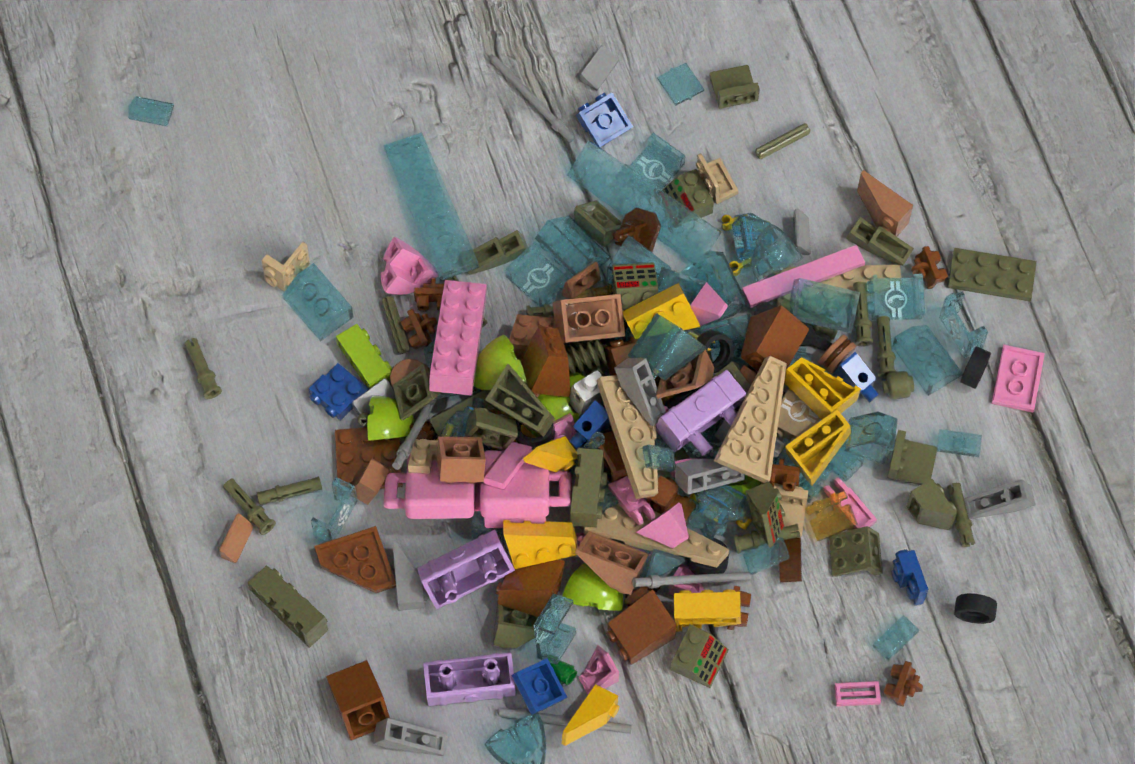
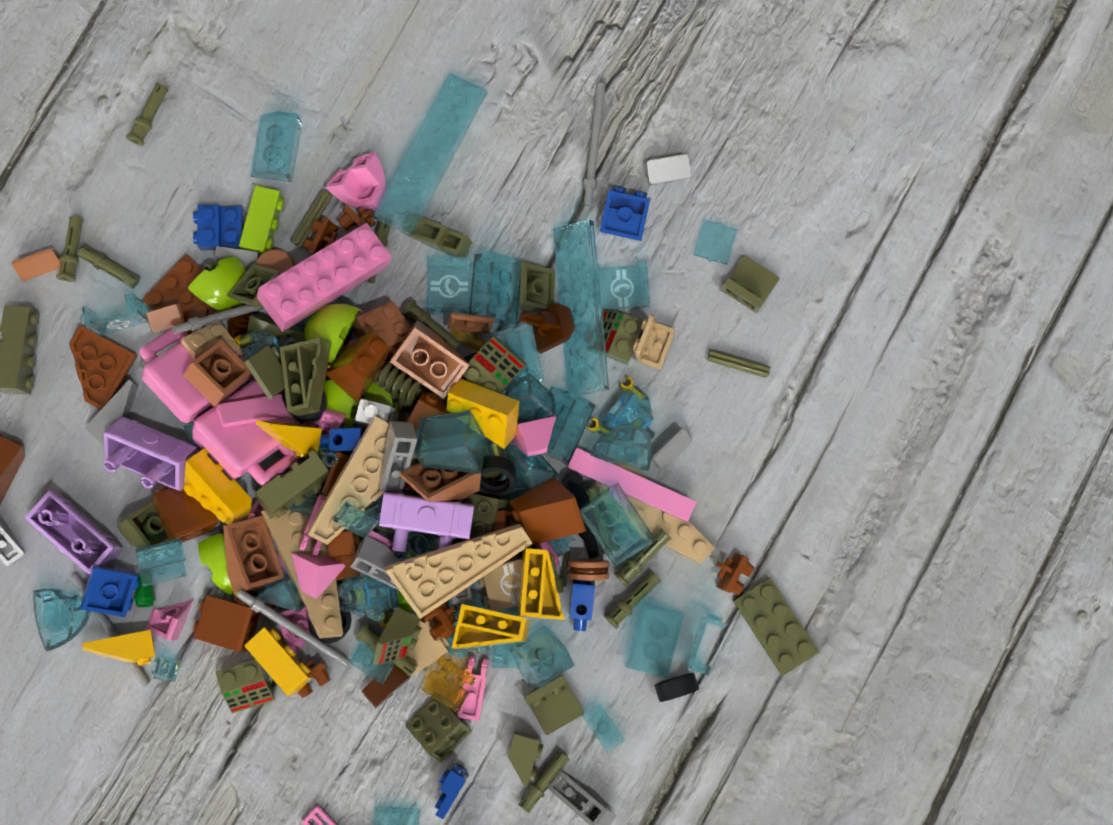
camera: 50 degrees right, 15 degrees up
(283, 275) = (280, 102): tan bracket -> none
(633, 701) = (166, 668): none -> clear light blue tile
(879, 242) = (719, 516): olive slope -> none
(884, 204) = (750, 498): nougat slope -> none
(896, 297) = (682, 570): clear light blue panel -> none
(898, 385) = (607, 638): olive head -> none
(1018, 378) = (703, 724): bright pink tile -> none

